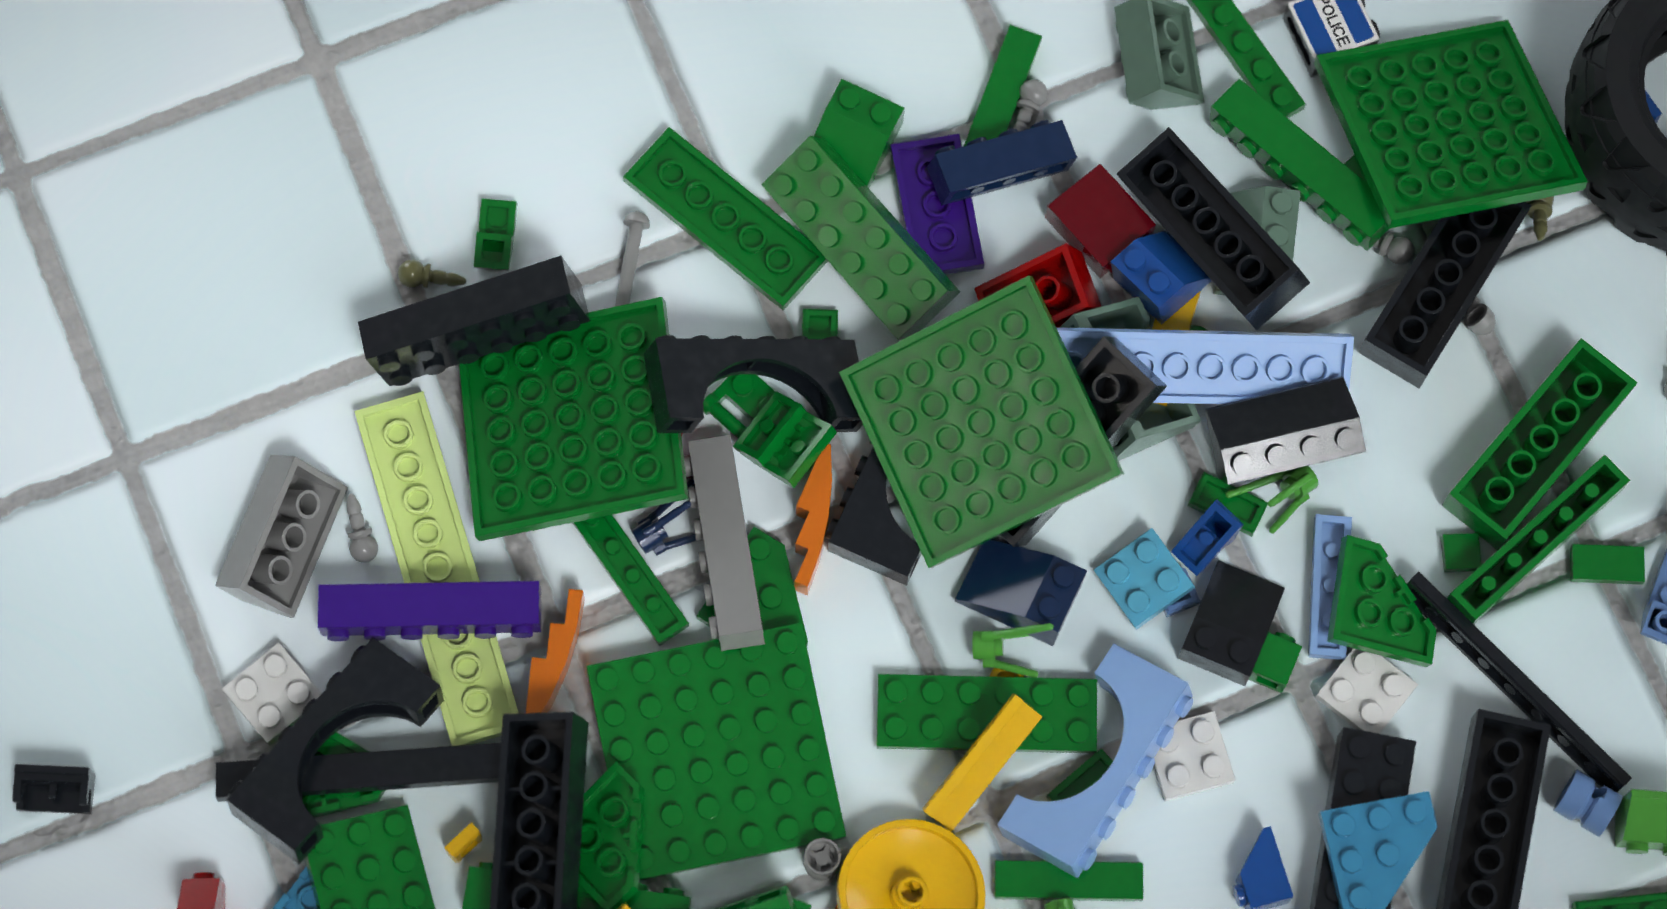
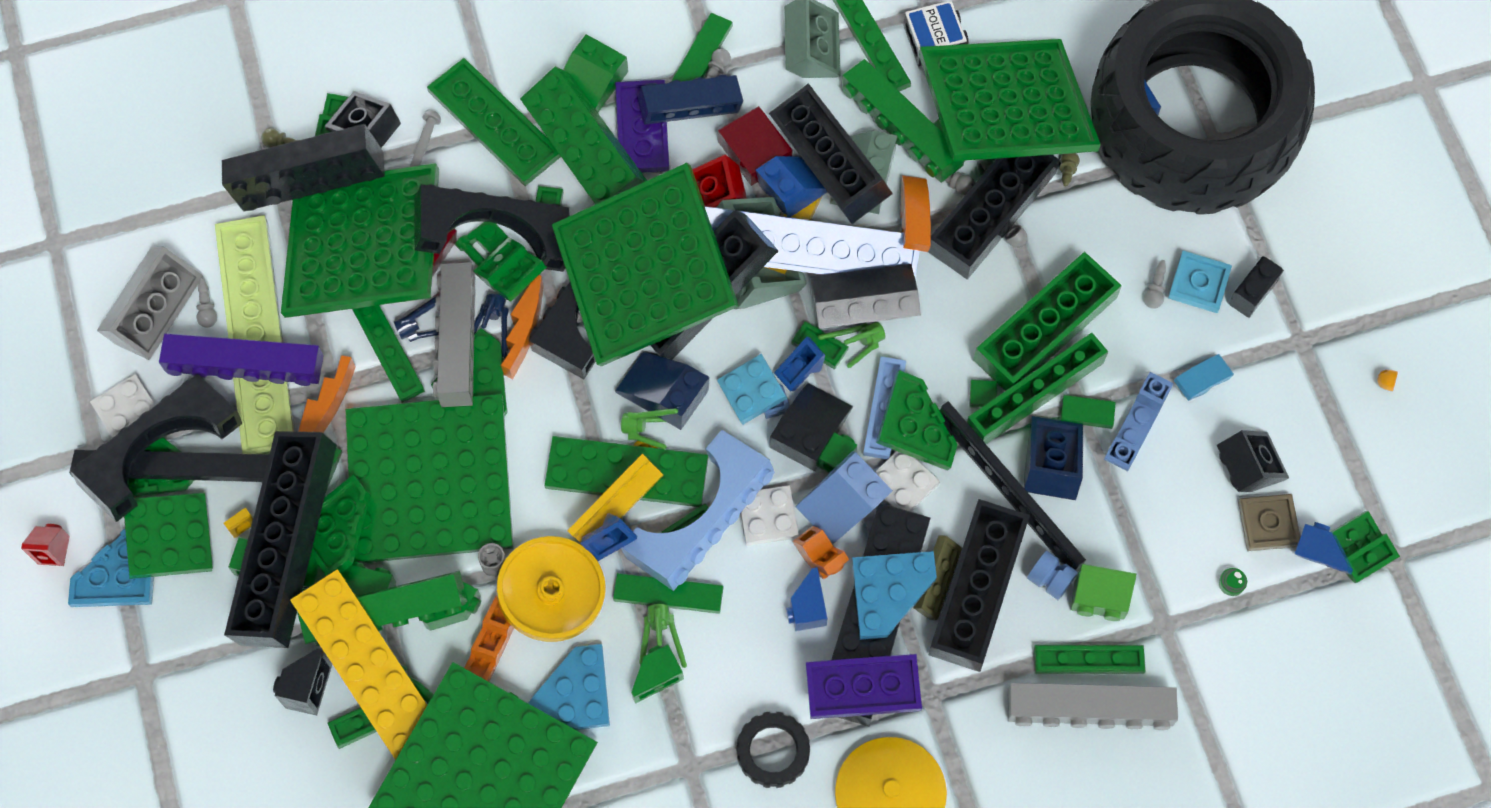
camera: 10 degrees right, 5 degrees down
(541, 232) = (366, 110): none -> black slope
(767, 497) = (493, 309): none -> dark blue plant
(982, 814) = (608, 538): none -> blue slope
(1270, 804) = (820, 552): none -> orange brick
(1294, 724) = (844, 497): none -> medium blue slope
(1339, 302) = (915, 213): none -> orange slope
(1442, 786) = (946, 558): none -> olive plate
(1570, 636) = (1054, 458): none -> dark blue slope

